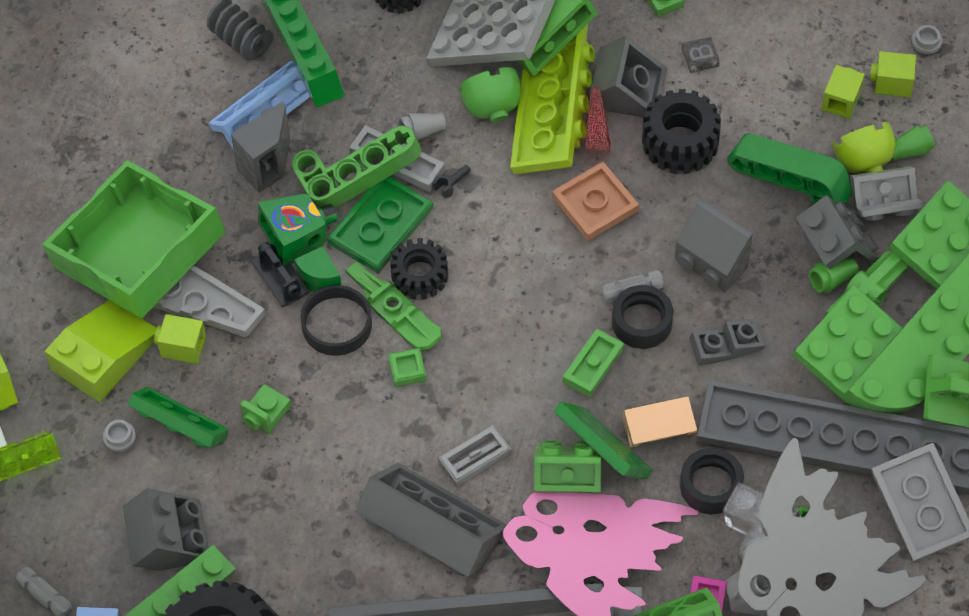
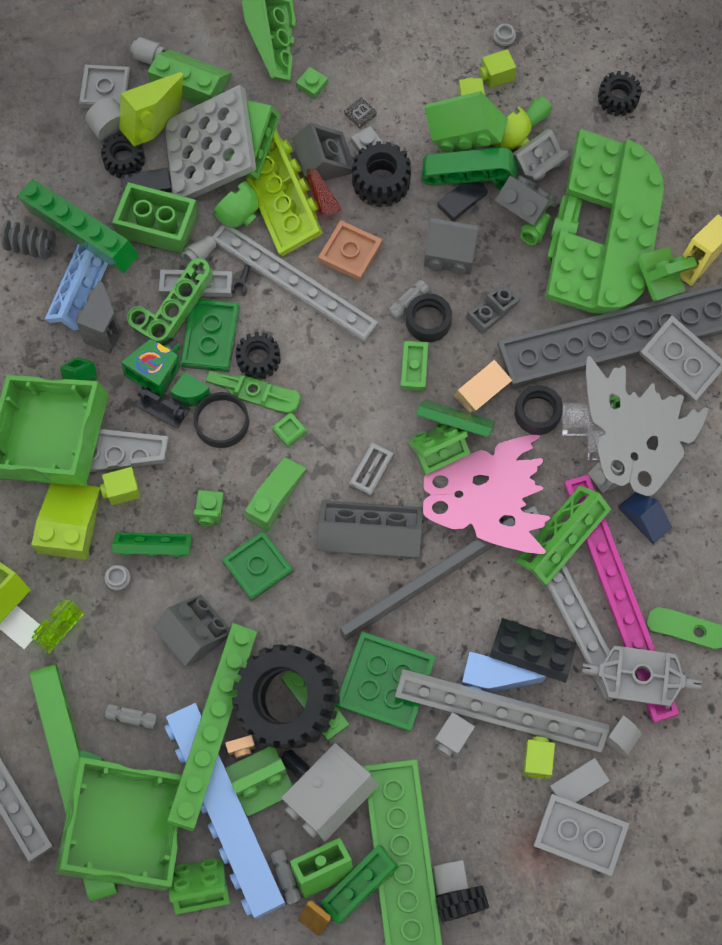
camera: 30 degrees left, 10 degrees up
(212, 192) = (79, 370): none -> green slope
(281, 499) = (257, 565): none -> green tile
(345, 428) = (274, 494): none -> bright green slope
(392, 66) = (155, 218): none -> bright green brick
(407, 26) = (154, 179): none -> black tile
(512, 211) = (295, 283): none -> light grey tile
(689, 82) = (365, 137): none -> light grey plate
(764, 202) = (462, 199): none -> black tile
(808, 113) = (465, 122): none -> bright green slope

